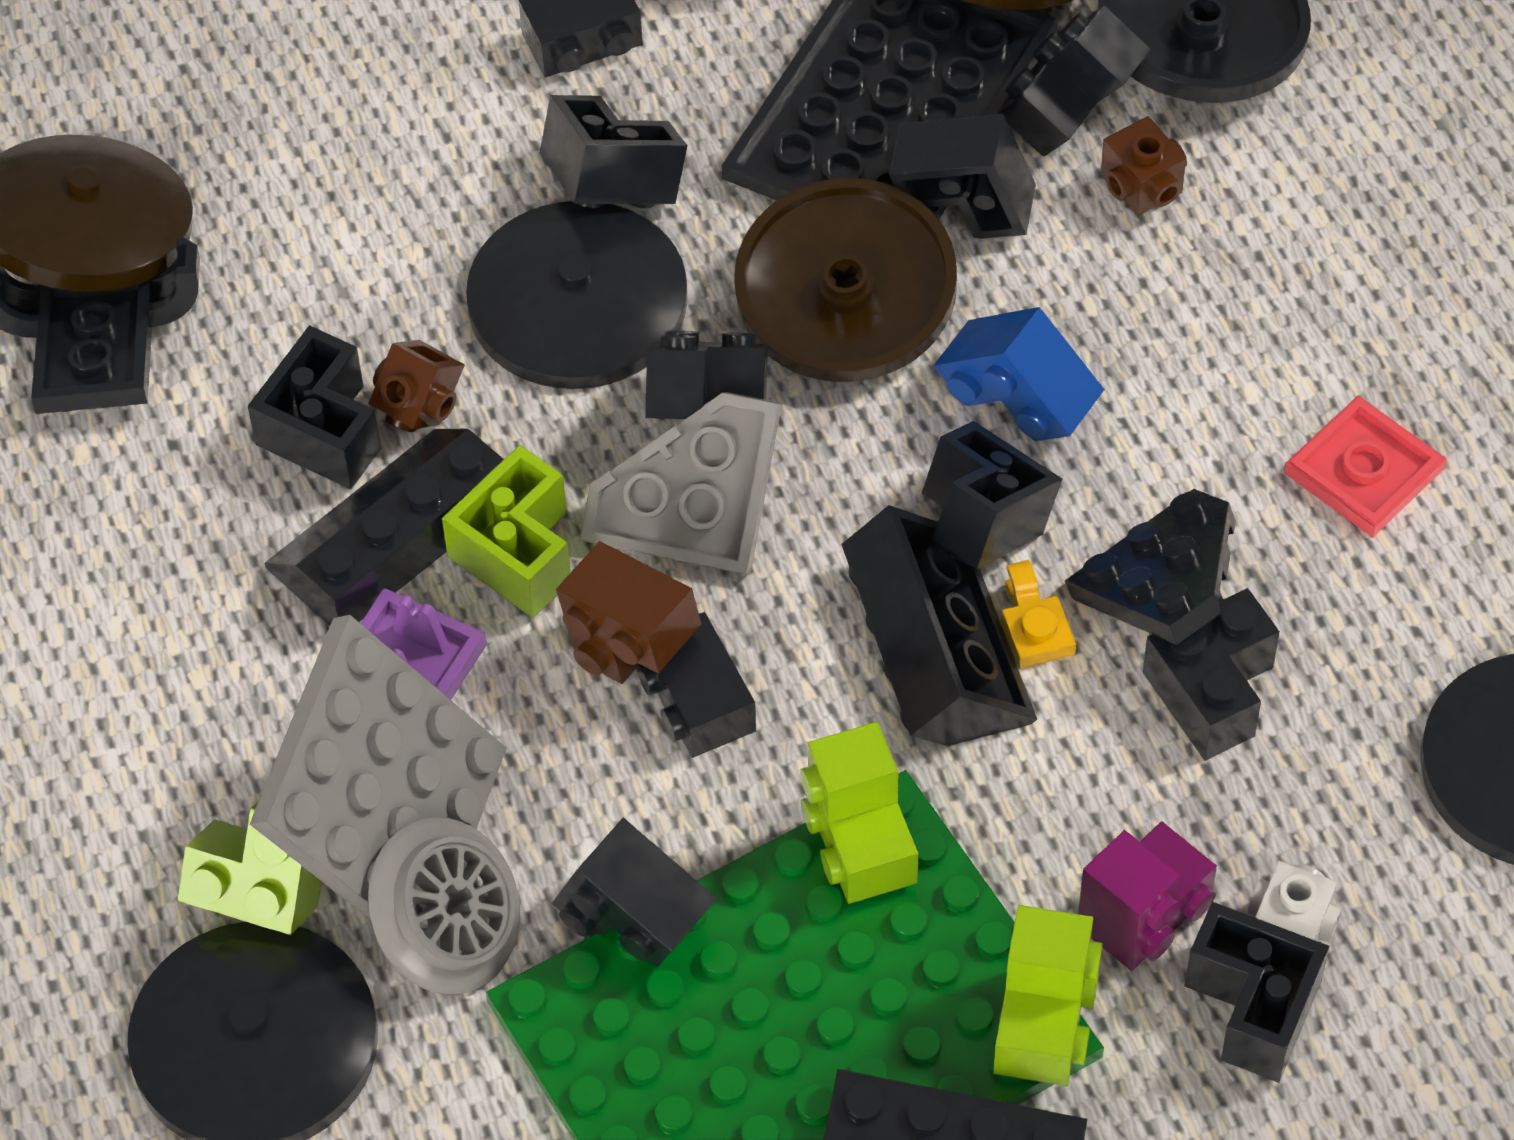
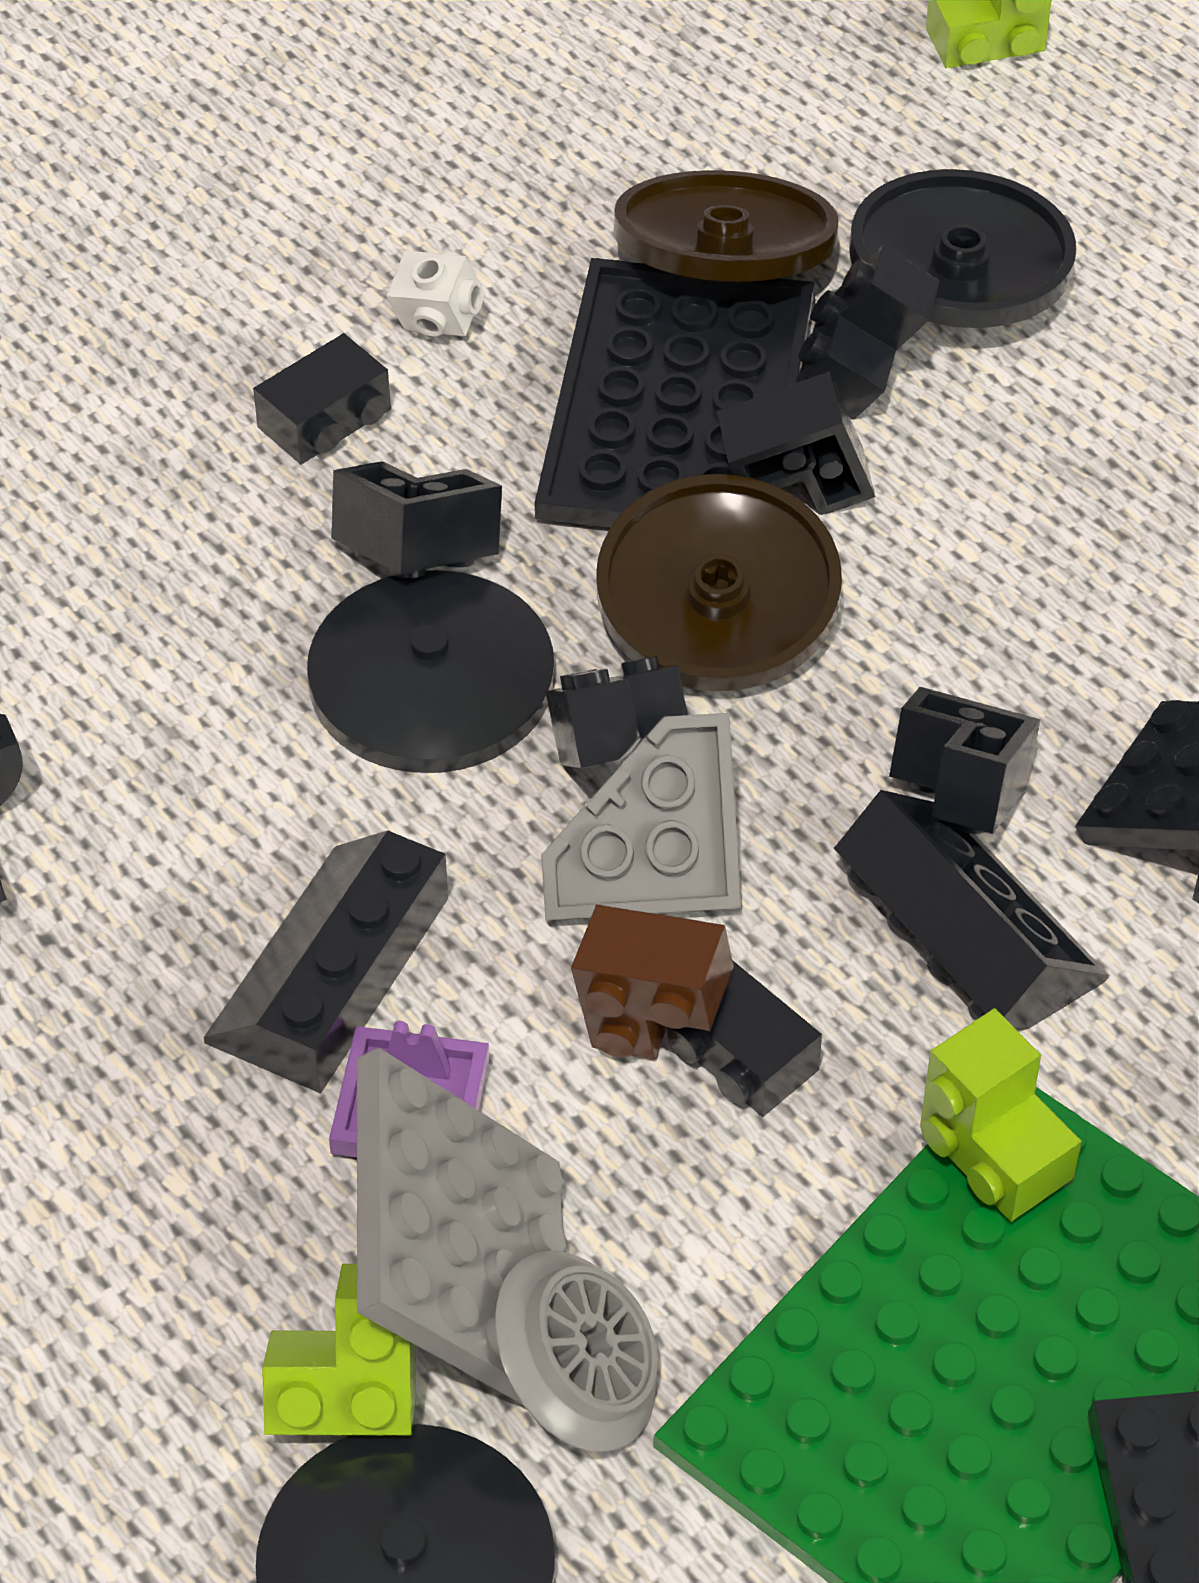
camera: 20 degrees left, 5 degrees down
(311, 412) = (198, 862): black brick -> none
(415, 385) = (303, 804): reddish brown brick -> none
(505, 532) = (471, 935): lime brick -> none
(636, 893) = (784, 1270): black brick -> none
(1026, 367) = (942, 617): blue brick -> none
(1034, 626) = (1064, 880): yellow plate -> none
(1143, 166) = (968, 400): reddish brown brick -> none

